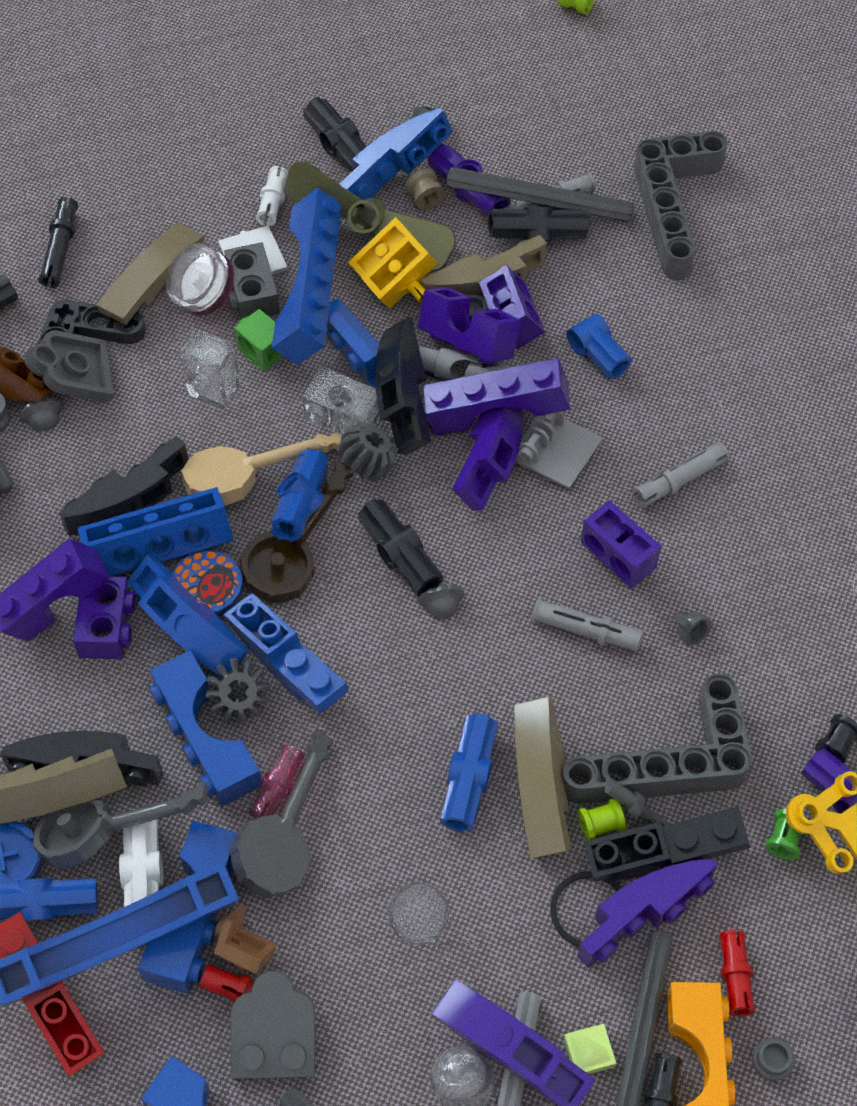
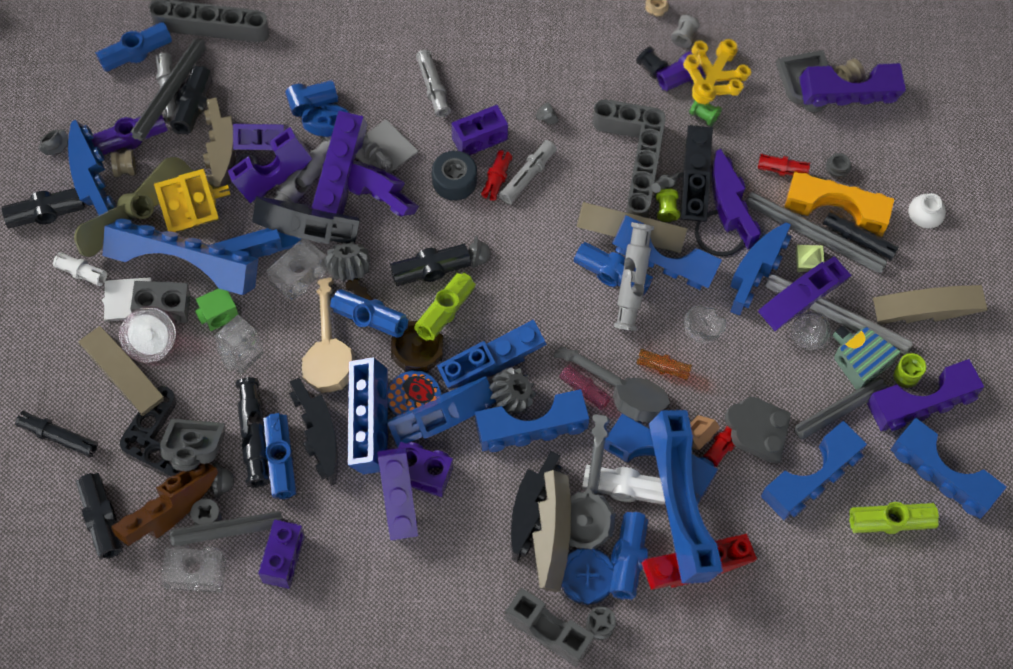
camera: 75 degrees left, 5 degrees up
(86, 433) = (252, 434): none -> black piece
(98, 453) = (280, 471): none -> blue piece
(341, 879) = (664, 364): none -> clear orange pin
(360, 583) = (445, 306): none -> lime piece
(469, 784) = (636, 256): none -> light grey piece
(511, 781) = (697, 266): none -> blue arch
(544, 537) = (454, 175): none -> black wheel
(562, 974) = (758, 263): none -> blue slope
(568, 589) = (496, 175): none -> red pin
(581, 374) = (321, 120): none -> blue tile
(591, 147) = (133, 47): none -> blue piece

